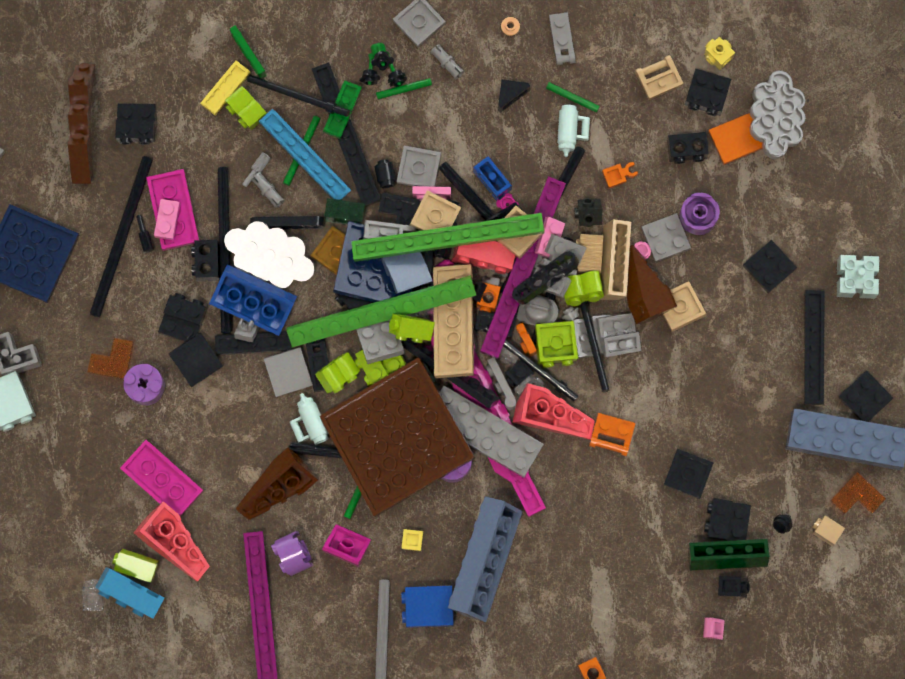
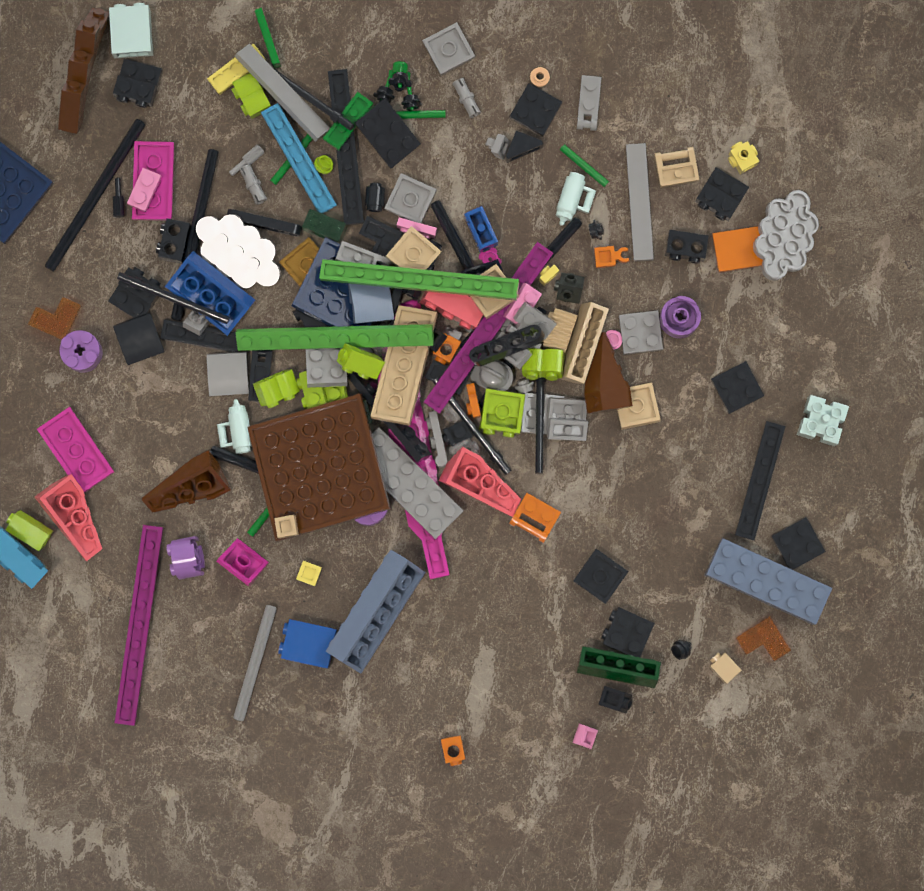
camera: 10 degrees right, 5 degrees up
(118, 76) = (131, 30): none -> light aqua brick
(183, 307) = (138, 283): none -> black bar
(274, 98) = (282, 92): none -> light grey tile
(329, 155) = (323, 164): none -> lime plate
(381, 111) = (387, 133): none -> black plate
(381, 499) = (286, 526): none -> tan plate
(489, 98) = (499, 146): none -> light grey tile
(514, 57) = (535, 109): none -> black plate
(565, 205) = (548, 274): none -> light yellow plate
(599, 153) = (596, 230): none -> black plate
(633, 118) = (639, 202): none -> light grey tile

